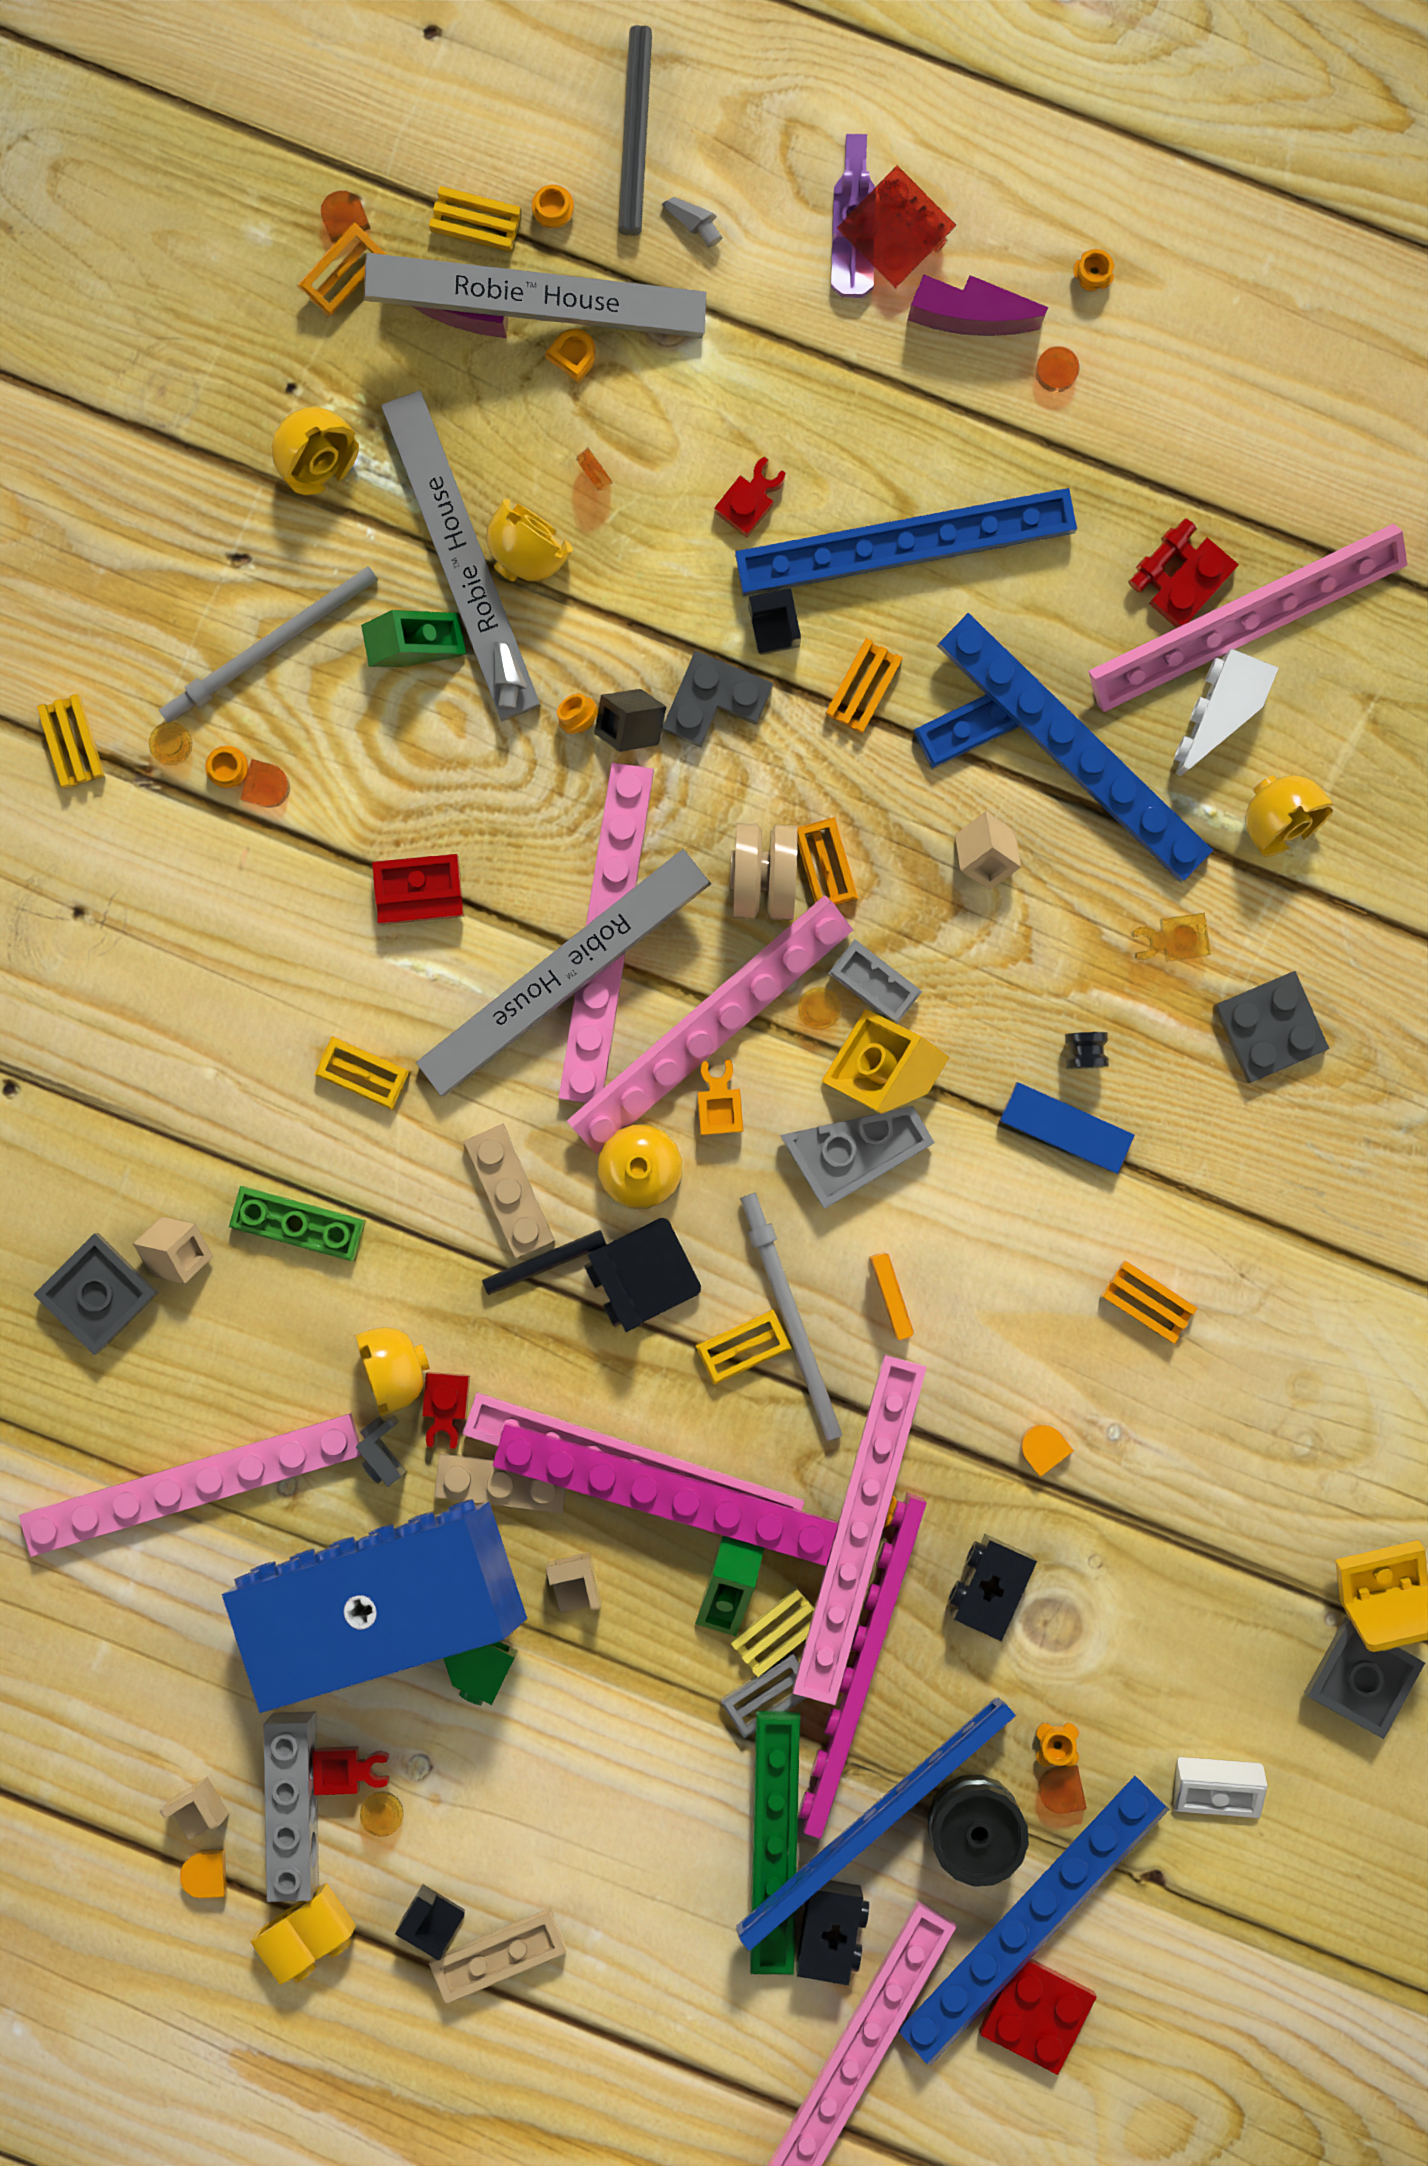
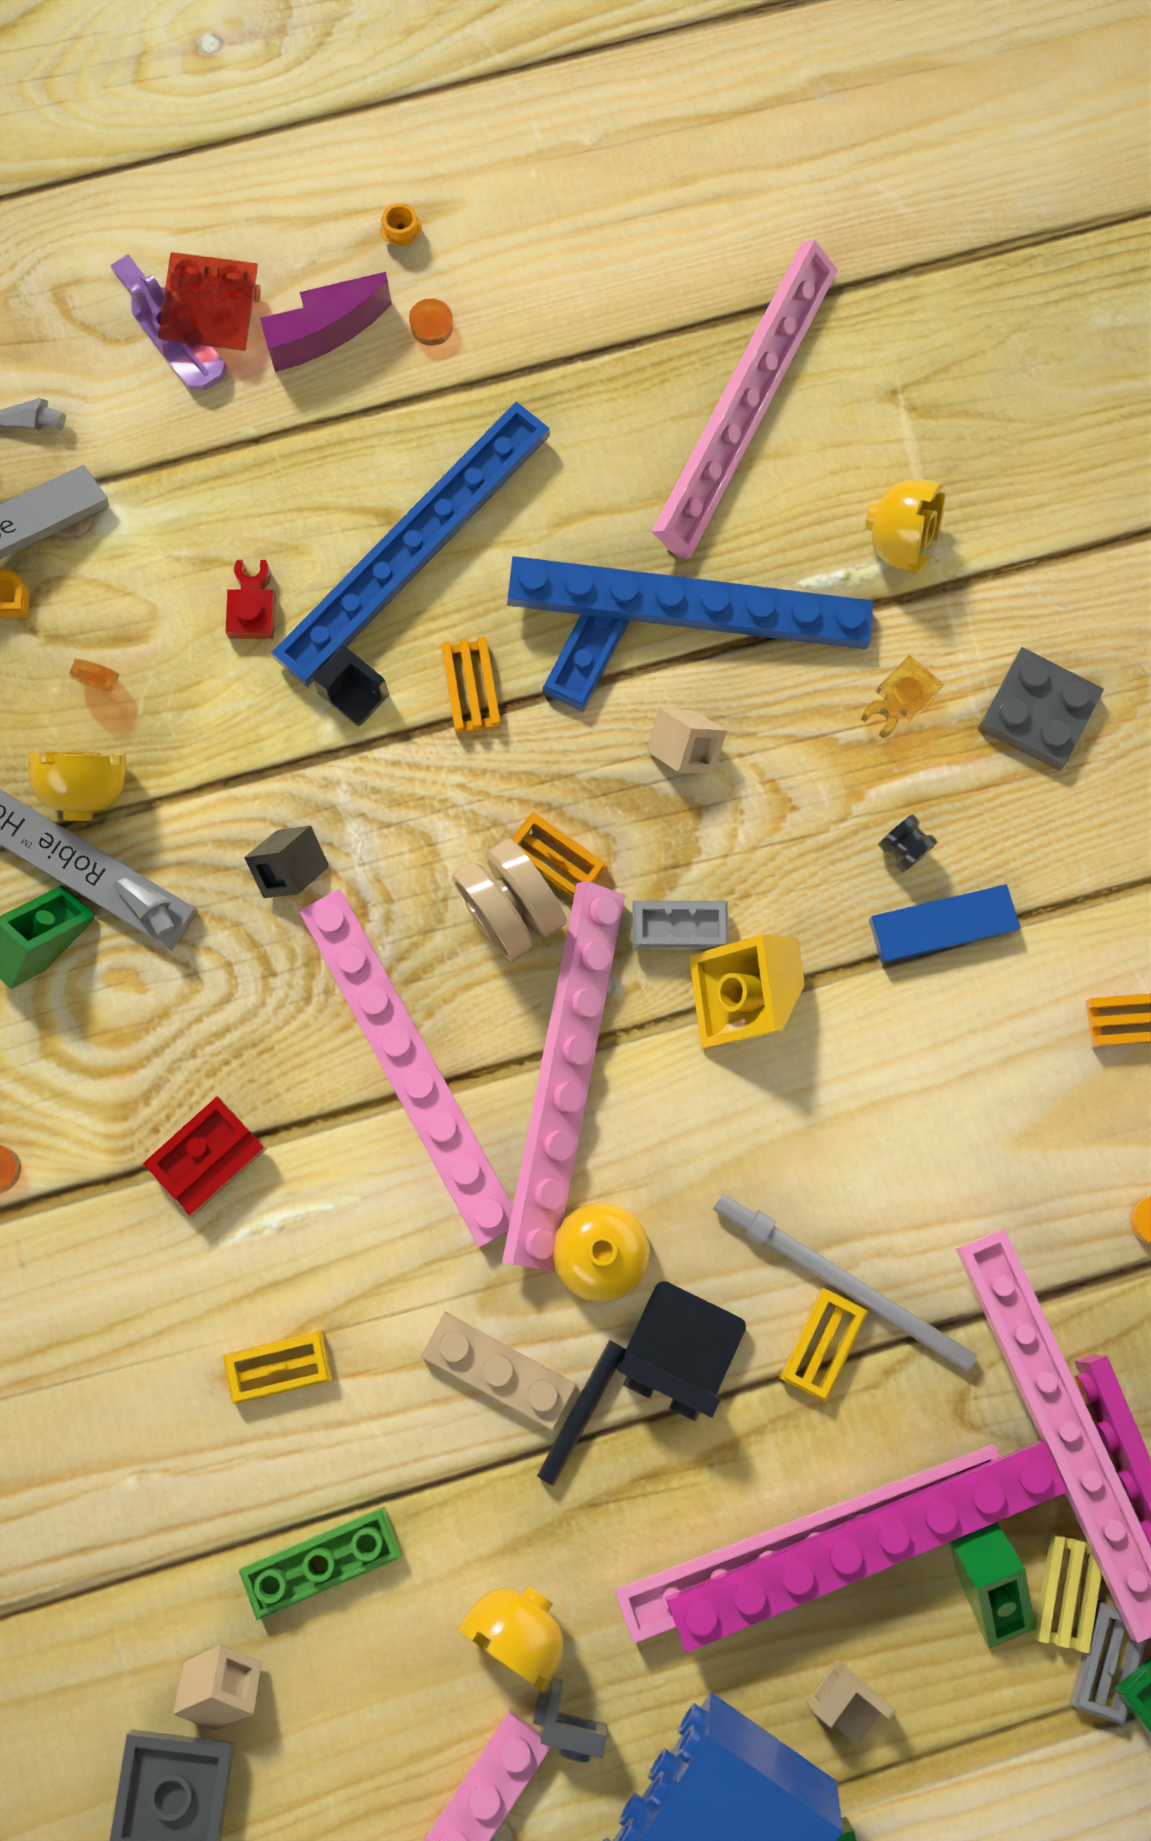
camera: 40 degrees left, 10 degrees down
(446, 1400) = (590, 1624): red plate -> none
(476, 1479) = (681, 1678): tan plate -> none
(563, 973) = (395, 1132): light grey tile -> none
(577, 713) = (235, 891): light orange plate -> none
(709, 687) = (336, 784): dark grey plate -> none
(719, 1108) = (631, 1140): light orange plate -> none
(819, 1008) = (649, 985): clear yellow plate -> none
(856, 1151) = (782, 1087): light grey wing -> none
(891, 1295) = (918, 1190): light orange tile -> none
(1193, 582) = (678, 407): red plate -> none
(1235, 695) = (787, 465): white slope -> none

